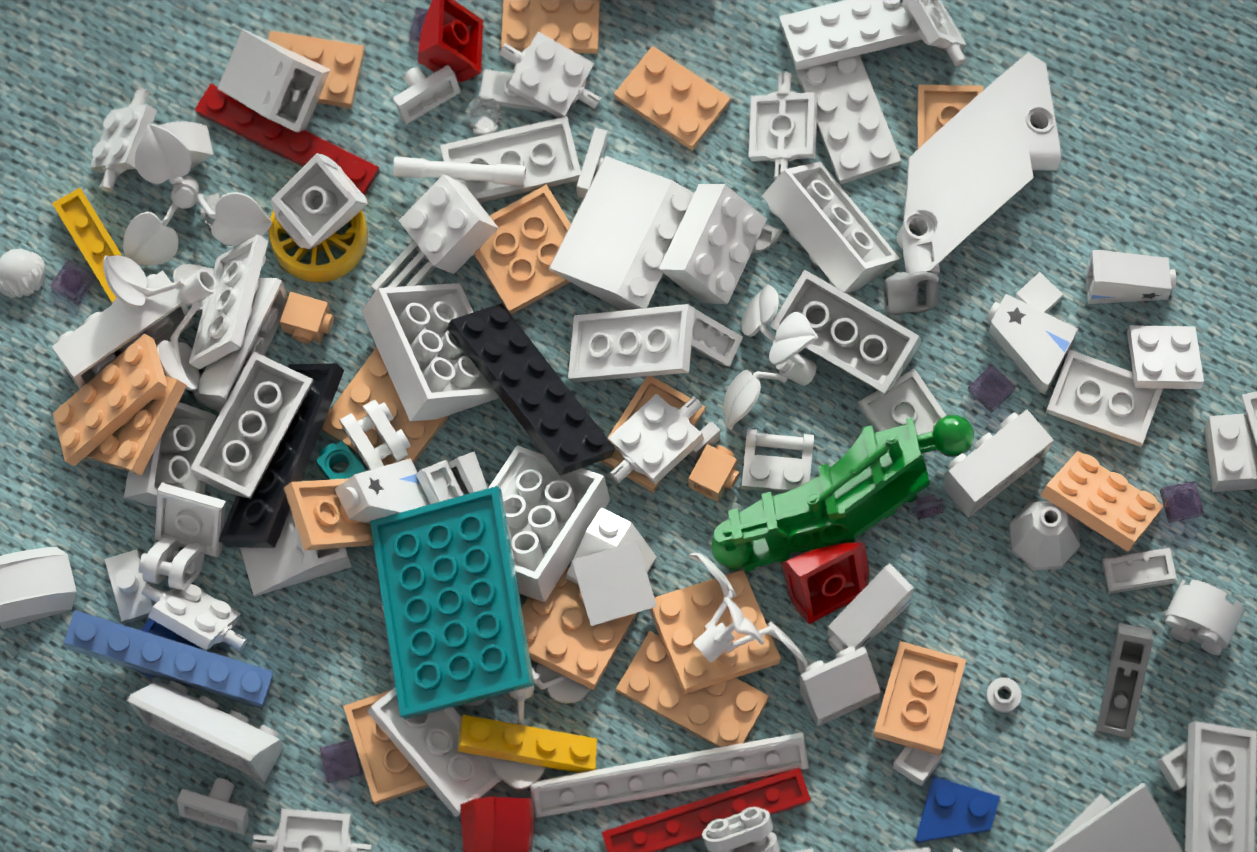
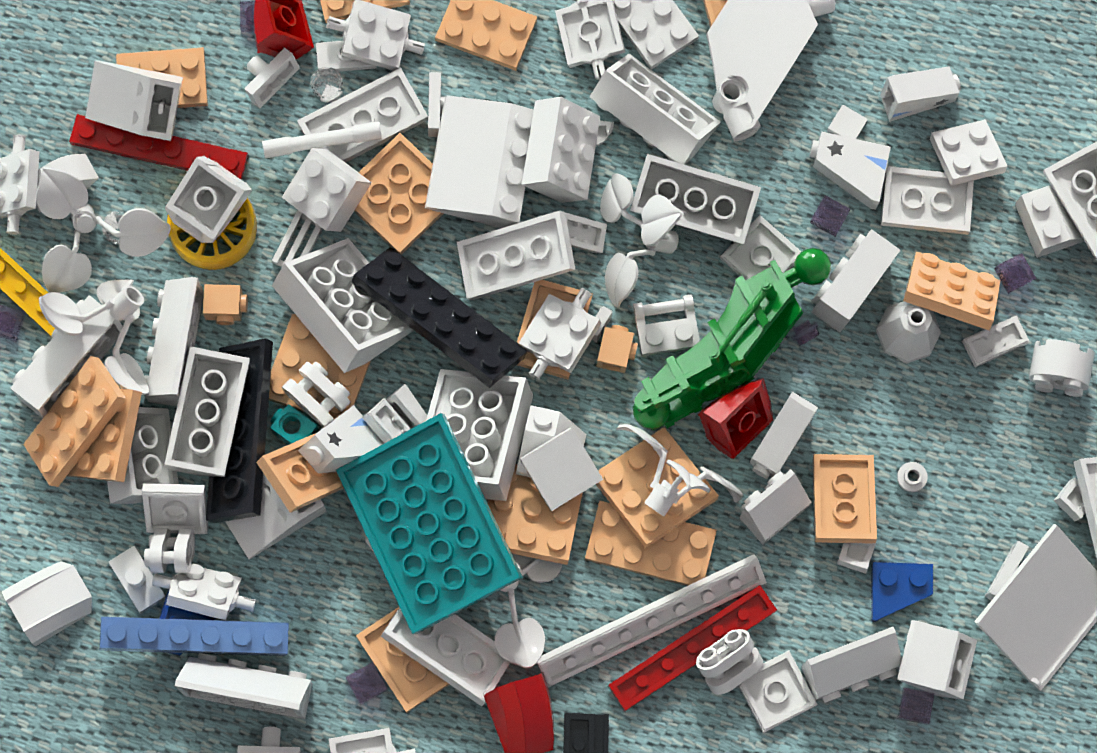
camera: 25 degrees left, 5 degrees up
(229, 308) = (157, 319): white plate -> none
(526, 744) = (524, 627): yellow plate -> none
(902, 292) = (732, 150): light grey piece -> none
(1124, 680) = (1009, 437): light grey slope -> none

